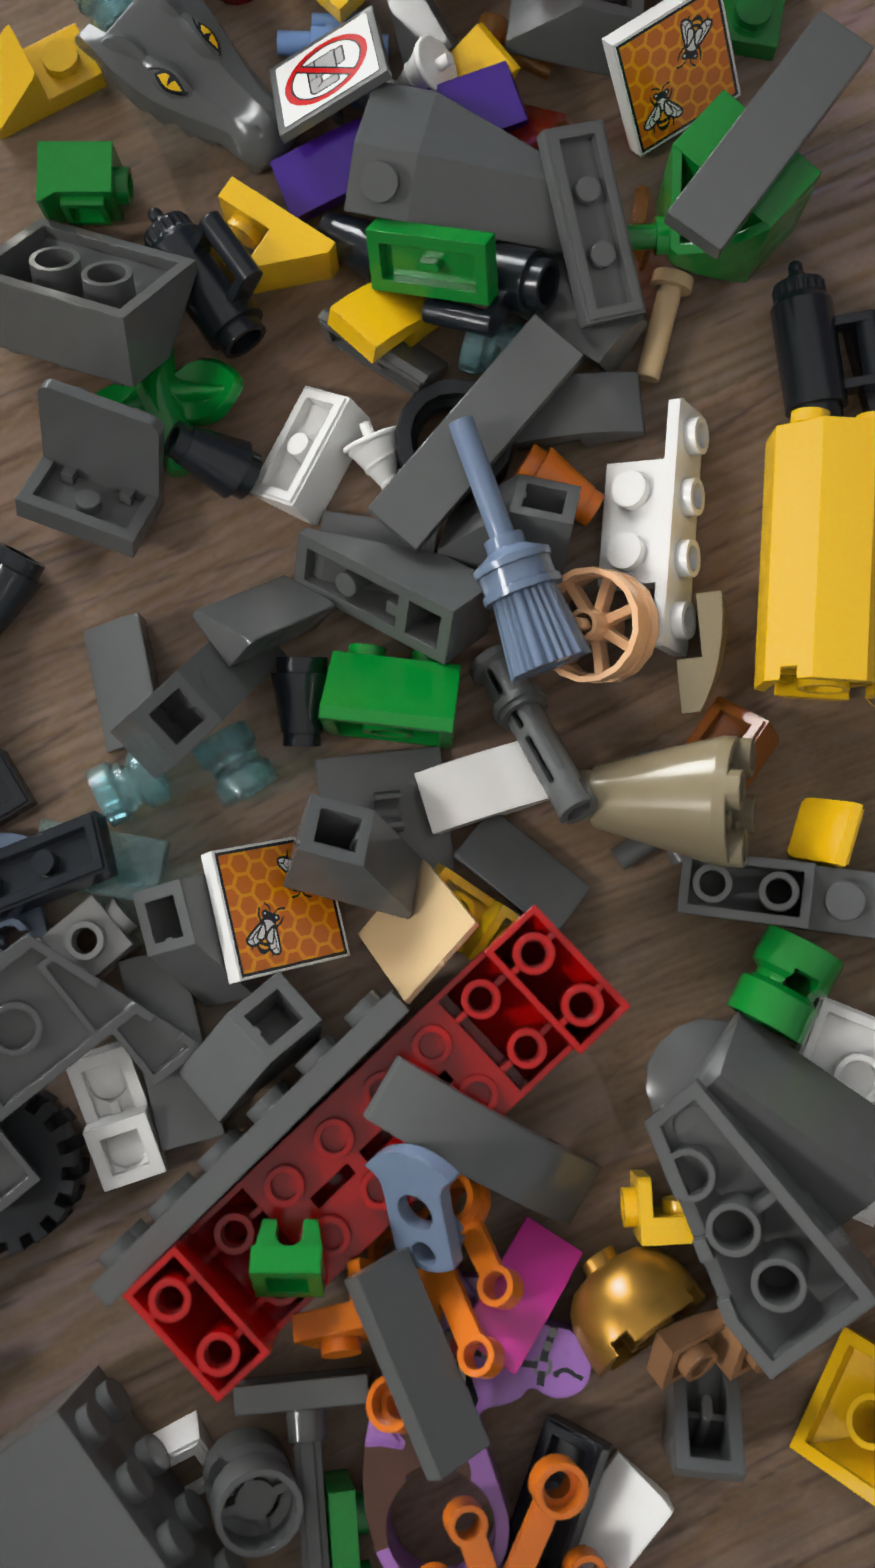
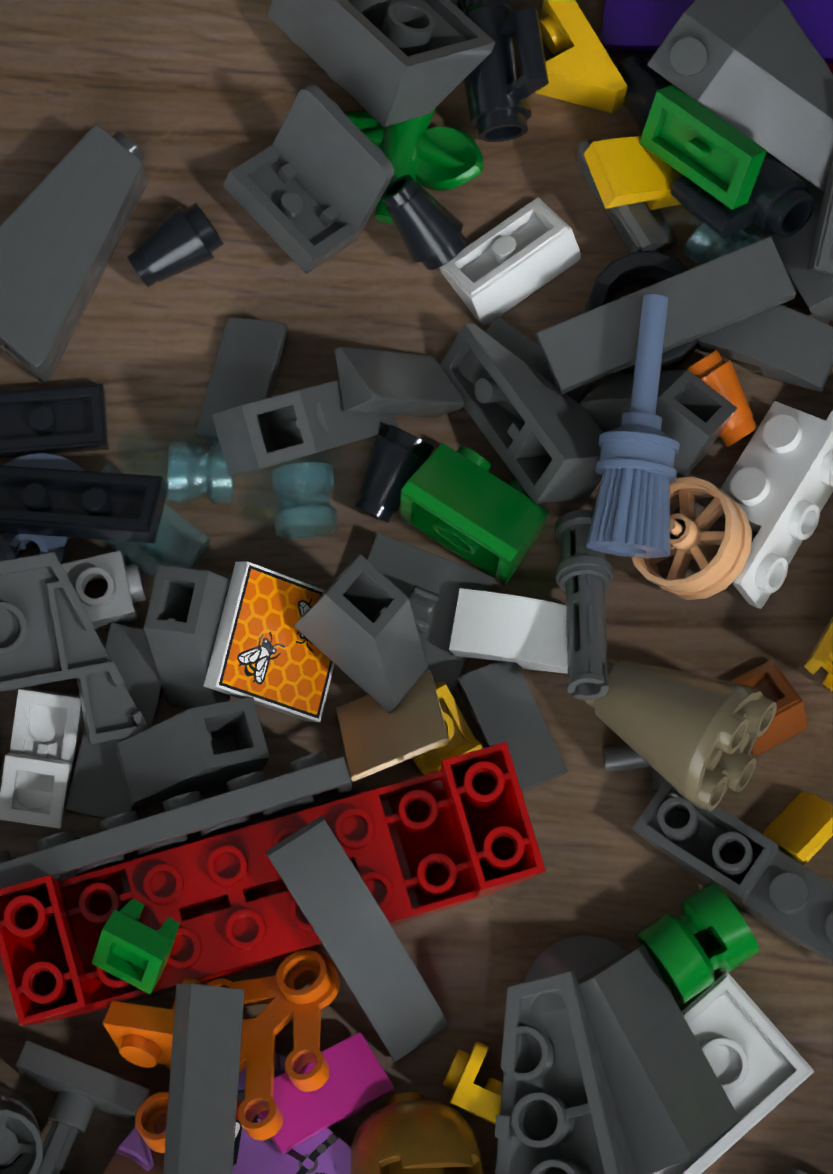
camera: 20 degrees right, 5 degrees down
(375, 453) = (569, 288): white piece -> none
(427, 1176) = (294, 928): sand blue piece -> none
(701, 674) = (761, 629): dark tan slope -> none

